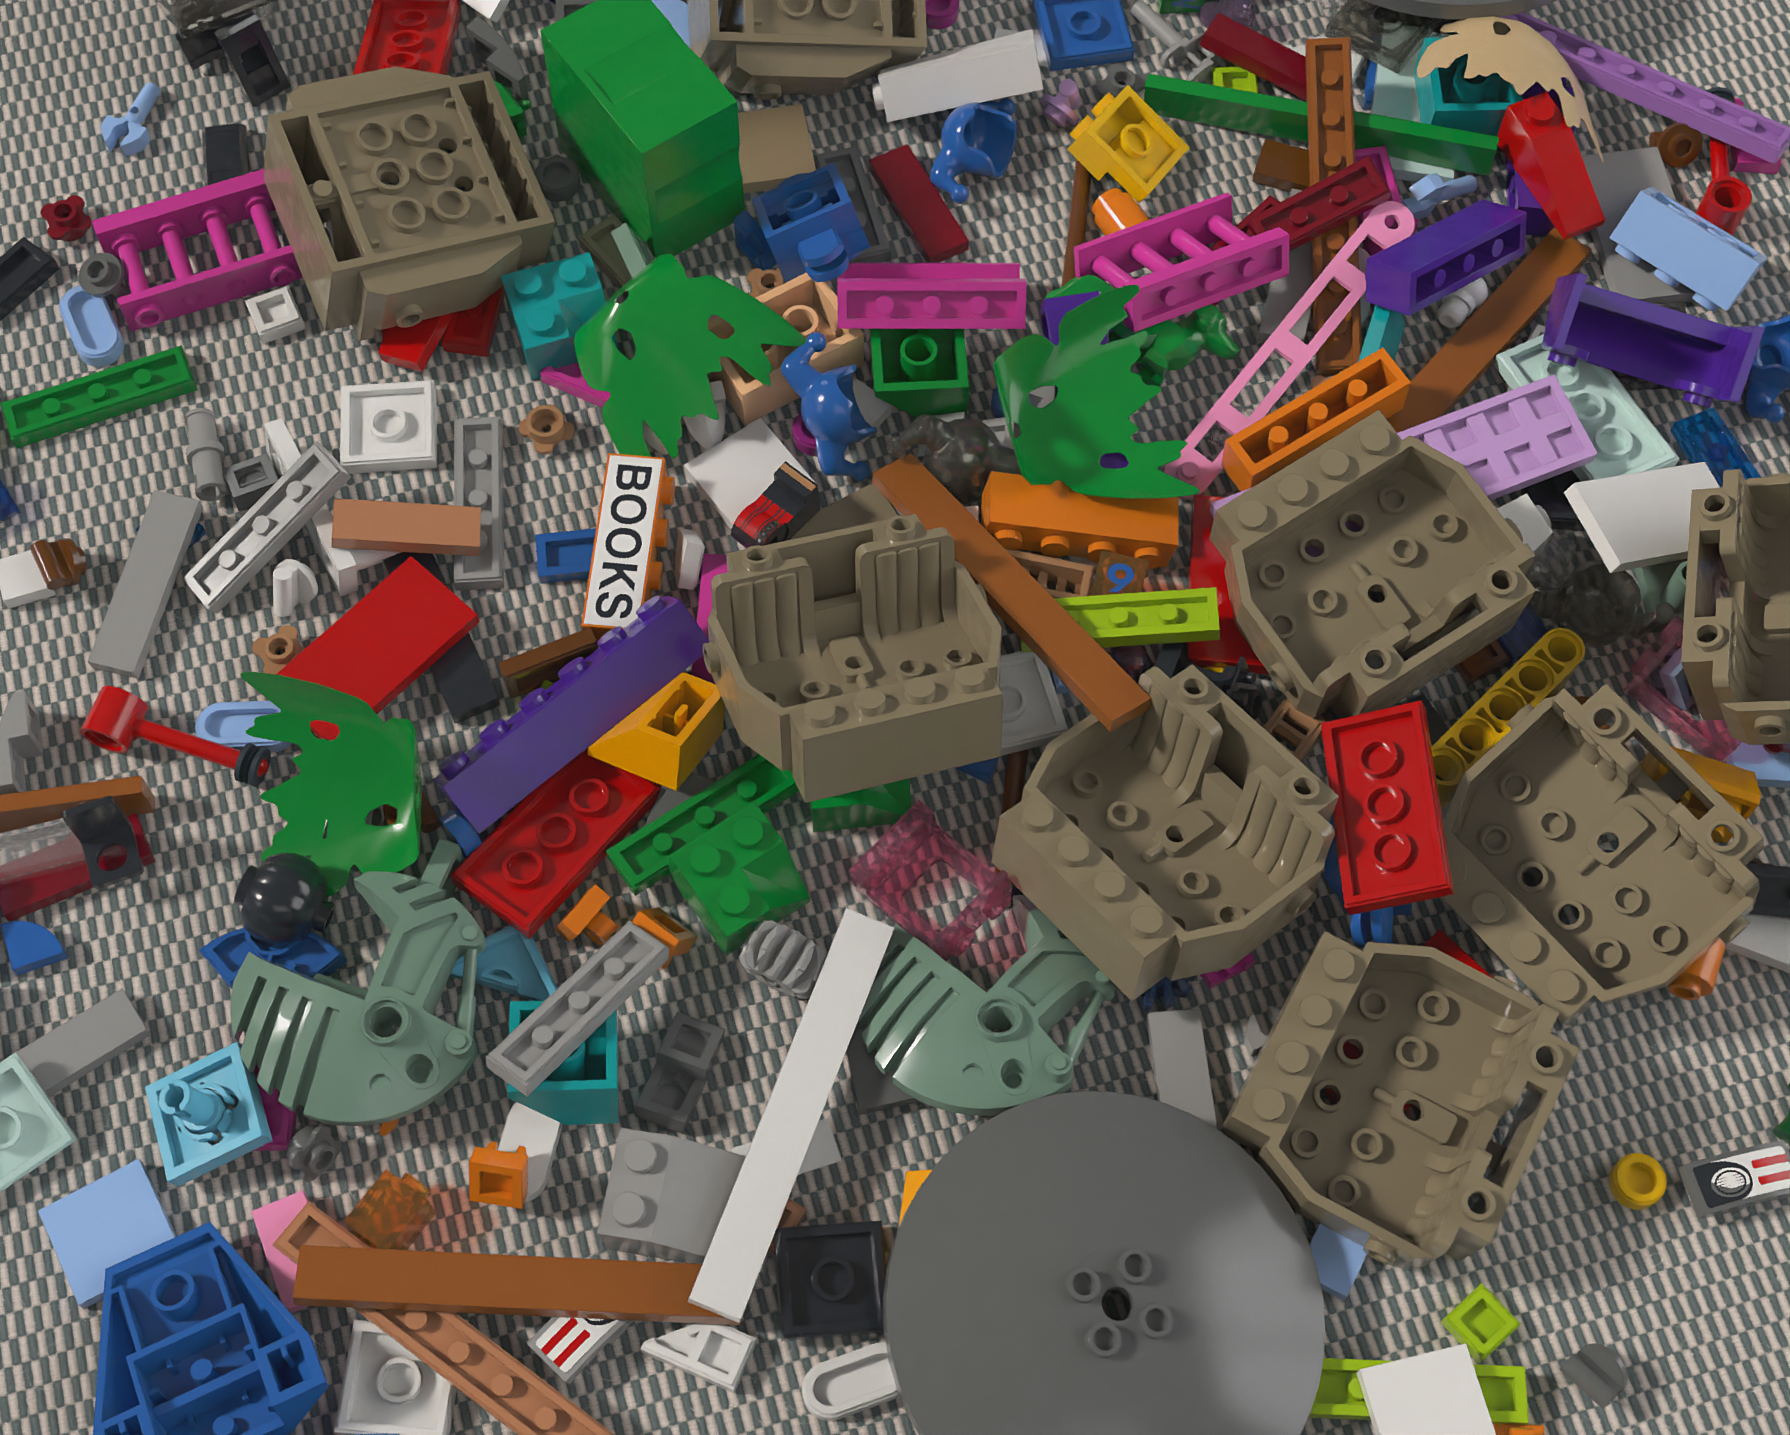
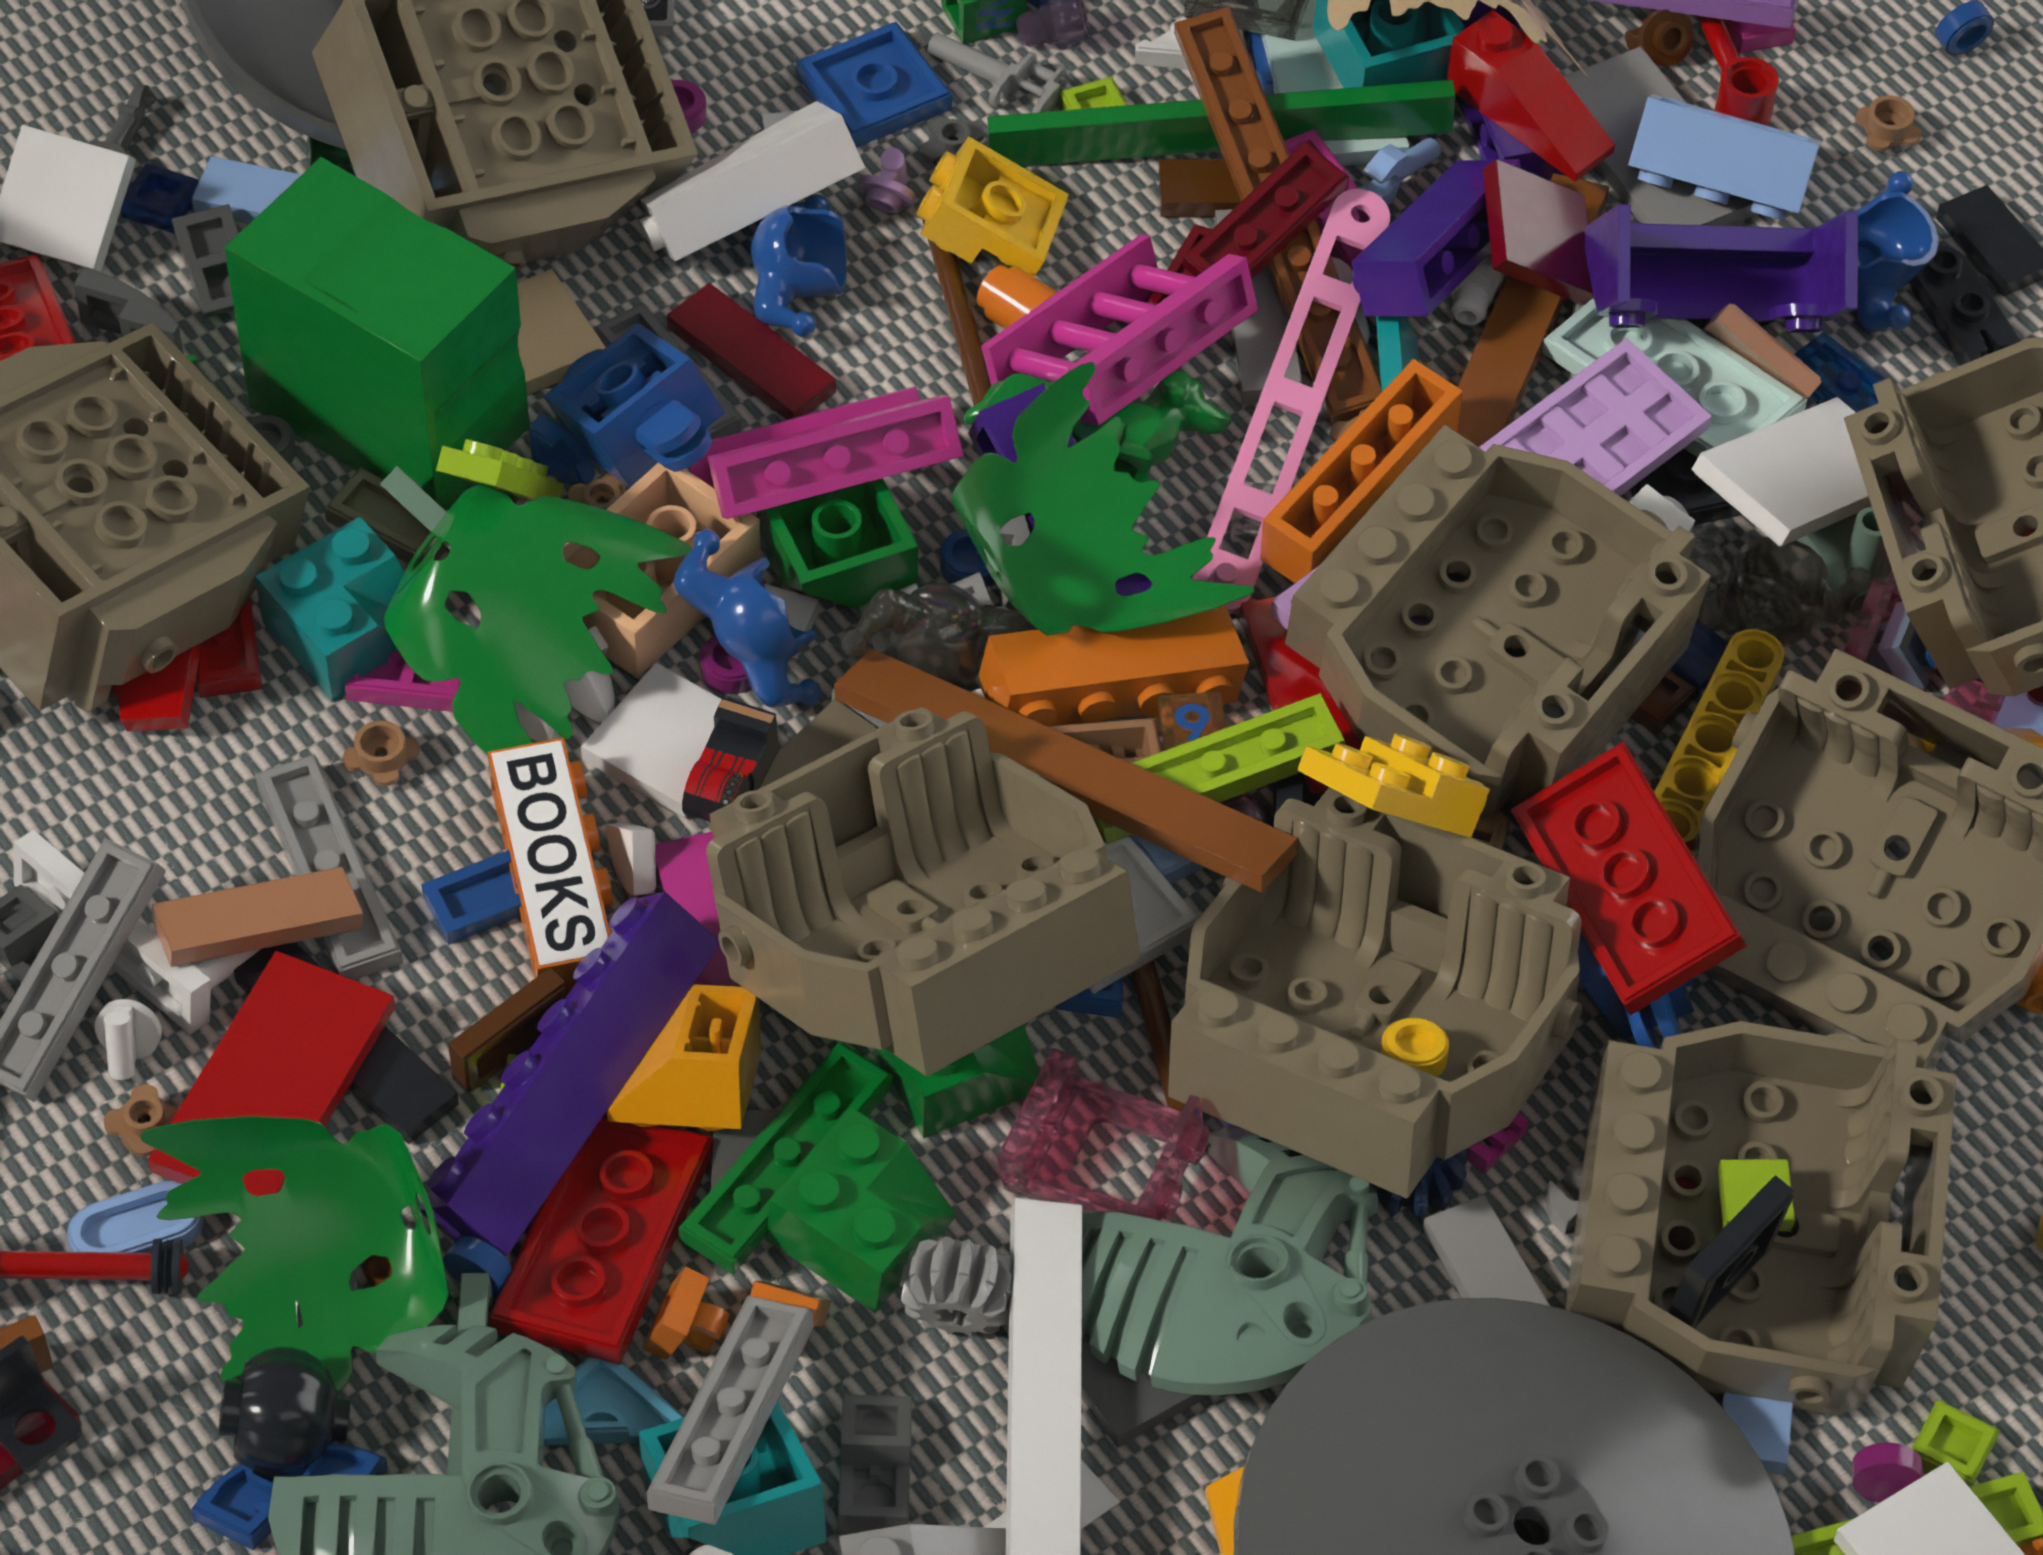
camera: 20 degrees left, 10 degrees down
(388, 427) = (170, 805): white tile -> none
(690, 249) = (498, 470): none -> lime plate
(1179, 888) = (1417, 1044): none -> yellow tile
(1238, 682) = (1402, 781): none -> yellow plate
(1257, 54) = (1114, 62): dark red tile -> none
(1353, 1131) = (1731, 1254): none -> black tile
(1397, 1081) = (1744, 1179): none -> lime tile
(1419, 1330) = (1884, 1470): none -> magenta tile
(1519, 271) = (1537, 231): none -> dark red tile
(1658, 411) = (1756, 345): none -> nougat tile

